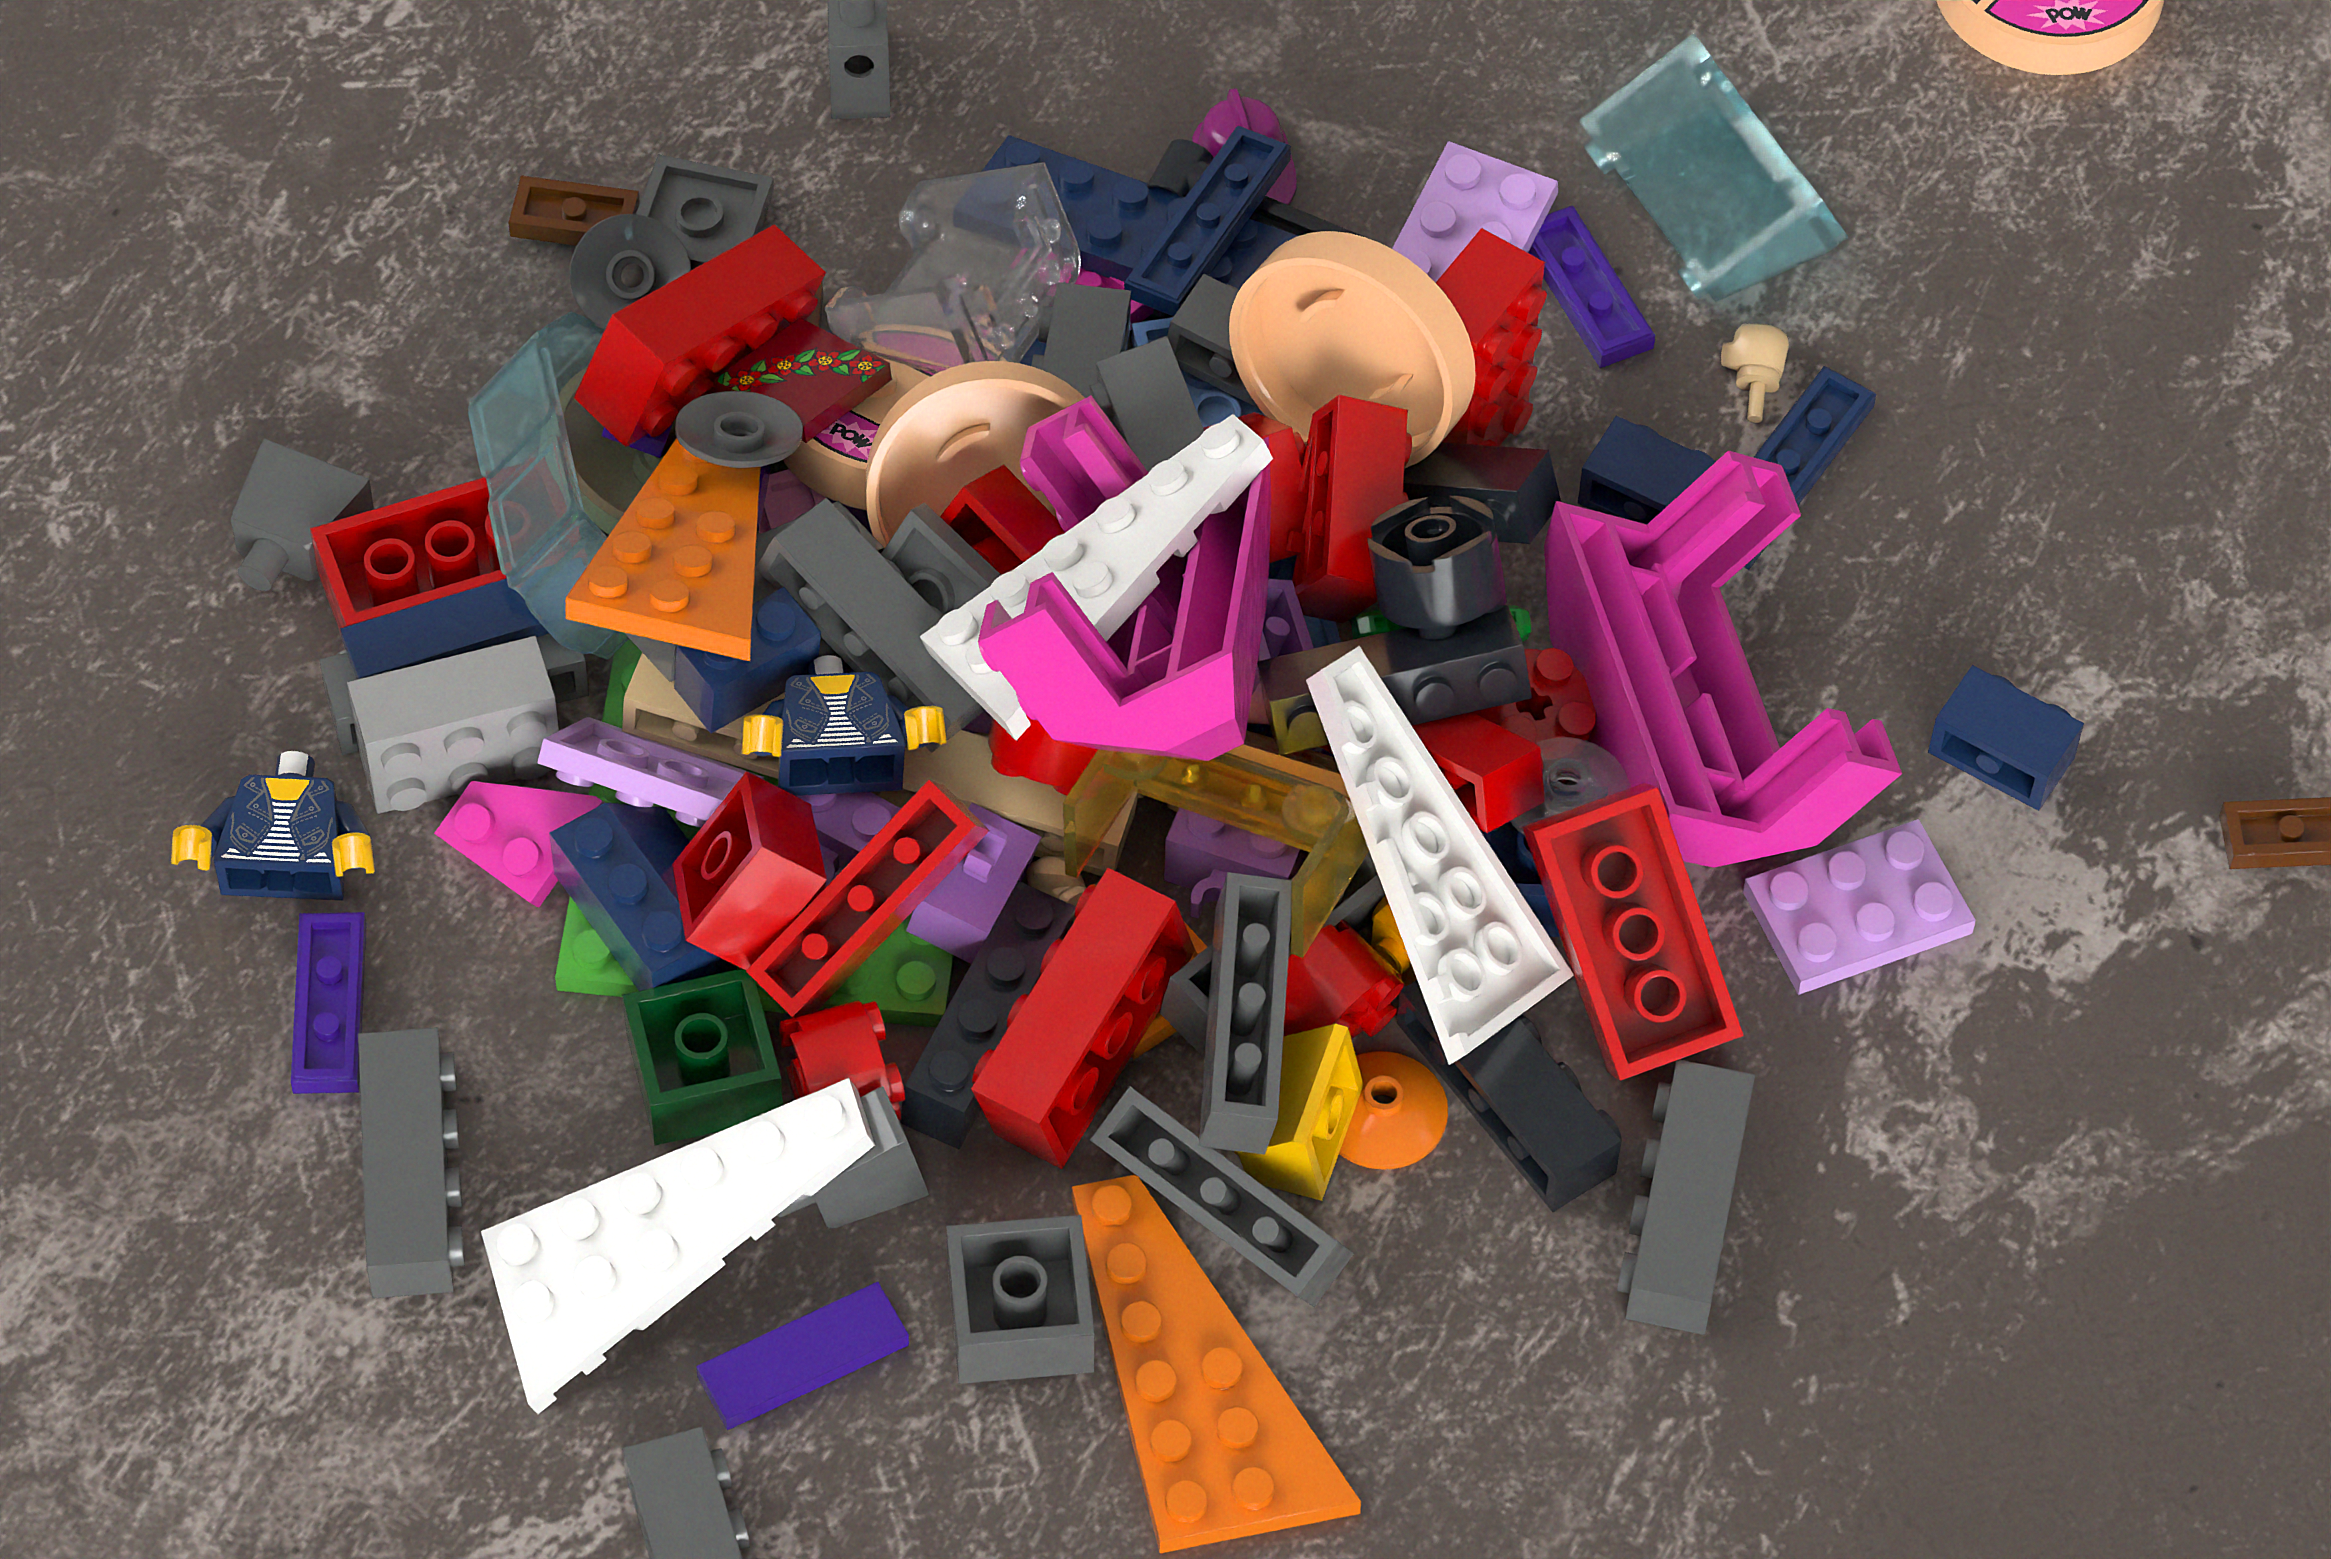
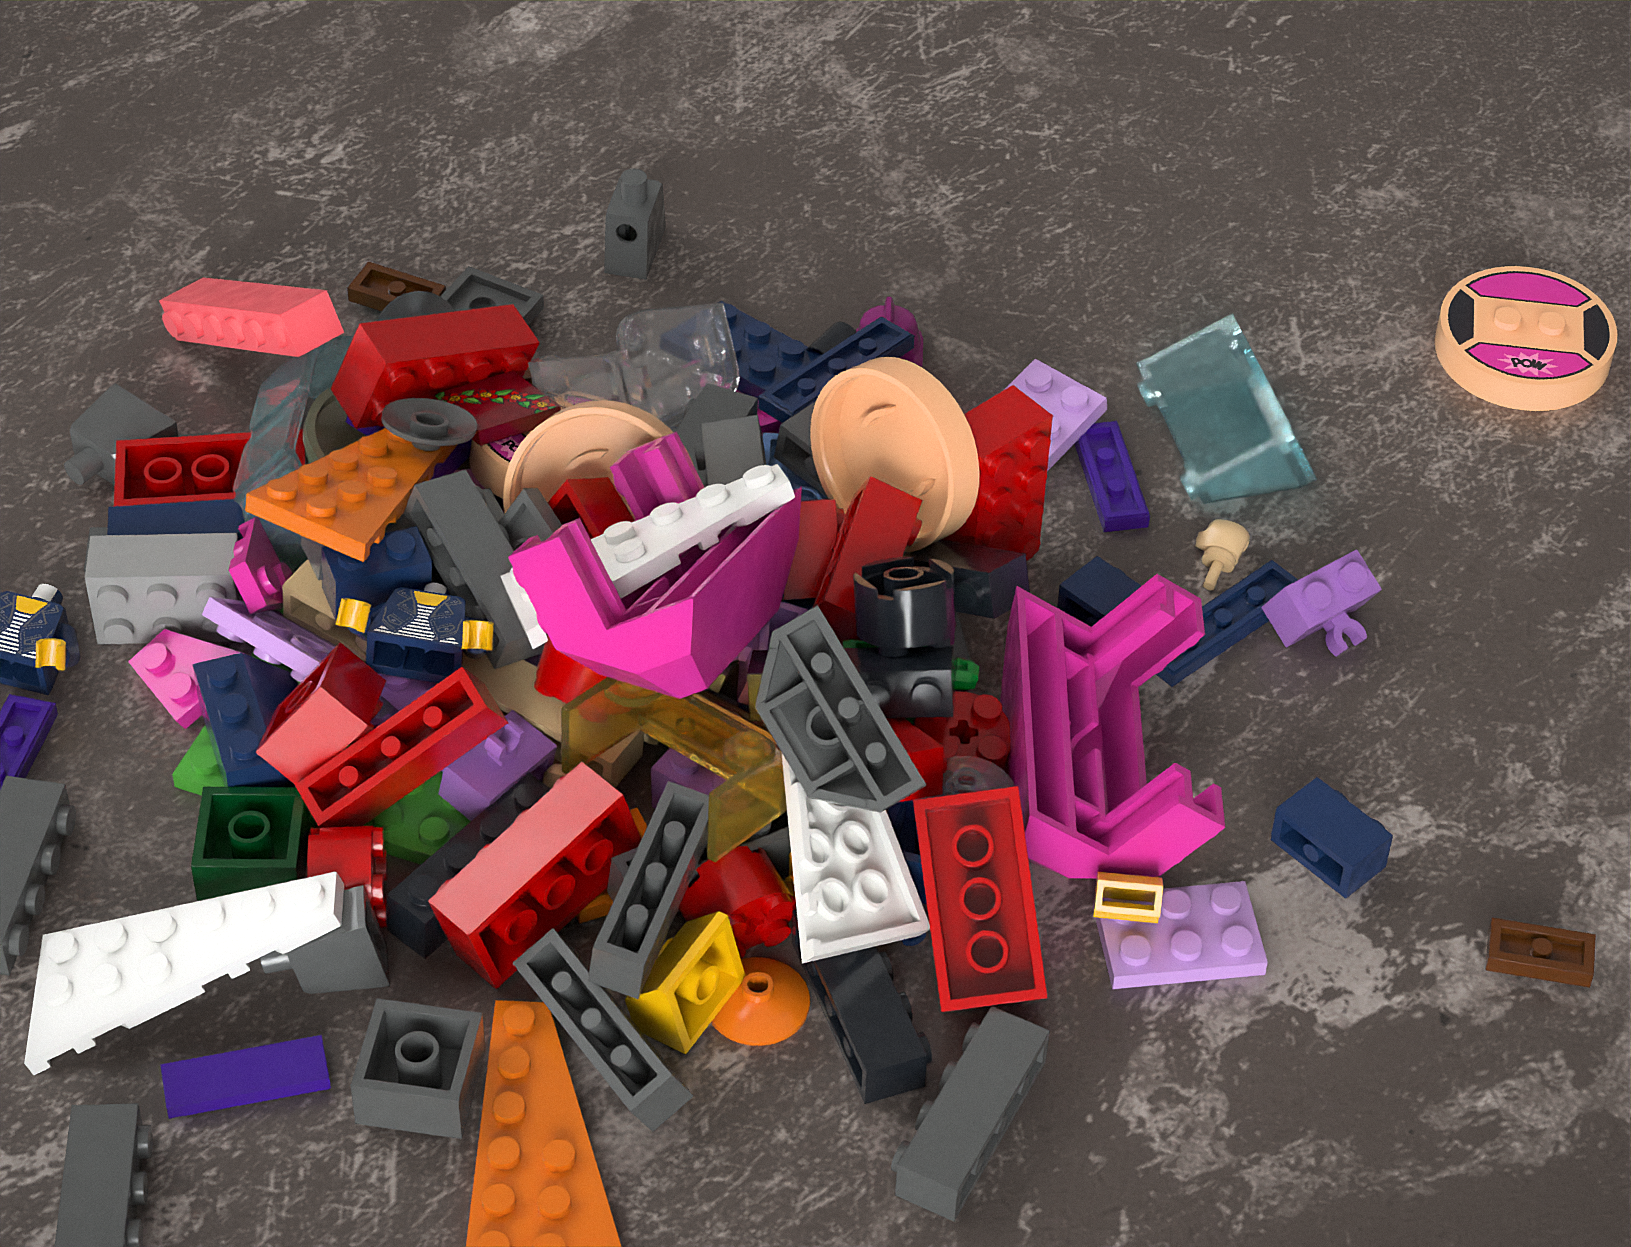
camera: 15 degrees right, 10 degrees down
(426, 311) = (251, 316): none -> coral brick
(582, 685) = (258, 569): none -> dark pink wing
(1414, 756) = (830, 720): none -> dark grey wedge
(1795, 864) = (1128, 888): none -> yellow piece
(1909, 418) = (1324, 602): none -> medium lavender brick

